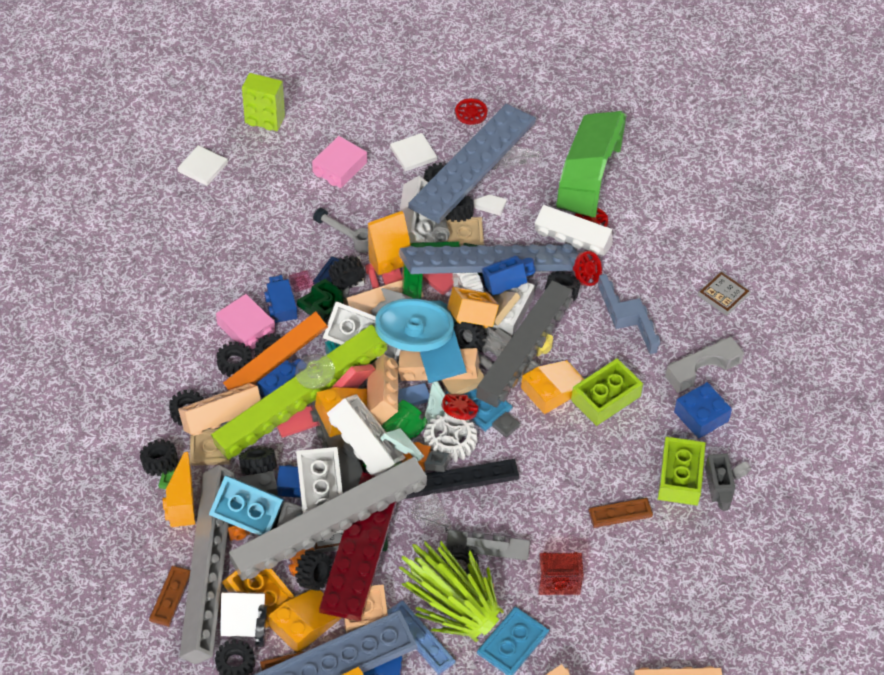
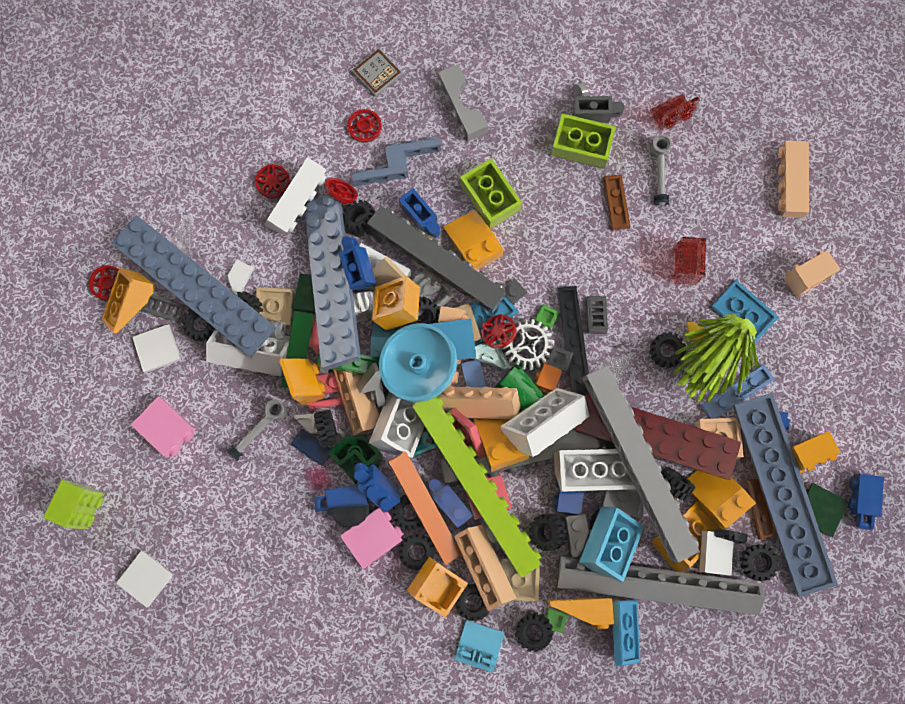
camera: 80 degrees left, 25 degrees up
(145, 417) = (479, 646): none -> medium azure hinge
(159, 532) = (626, 632): none -> dark azure tile
(170, 596) = (686, 622): dark orange tile -> none
(200, 371) = (437, 587): none -> light orange container
(264, 298) = (350, 515): none -> black tile
(294, 311) = (377, 486): none -> blue brick
(315, 377) = (451, 467): clear dish -> none
(402, 443) = (549, 388): light aqua tile -> none
(454, 140) = (146, 308): none -> dark grey slope
(462, 122) = (127, 297): none -> light orange slope
(483, 454) = (547, 316): none -> bright green tile
(484, 505) = (597, 329): none -> dark grey slope
(491, 545) = (650, 322): dark grey bracket -> none
(575, 333) = (420, 213): none -> blue brick
(586, 161) = (211, 157): bright green piece -> none
(663, 287) = (364, 125): none -> red wheel
(690, 555) = (662, 198): none -> light grey piece
(702, 410) = (516, 112): blue brick -> none
(735, 558) = (673, 111): none -> clear red bracket

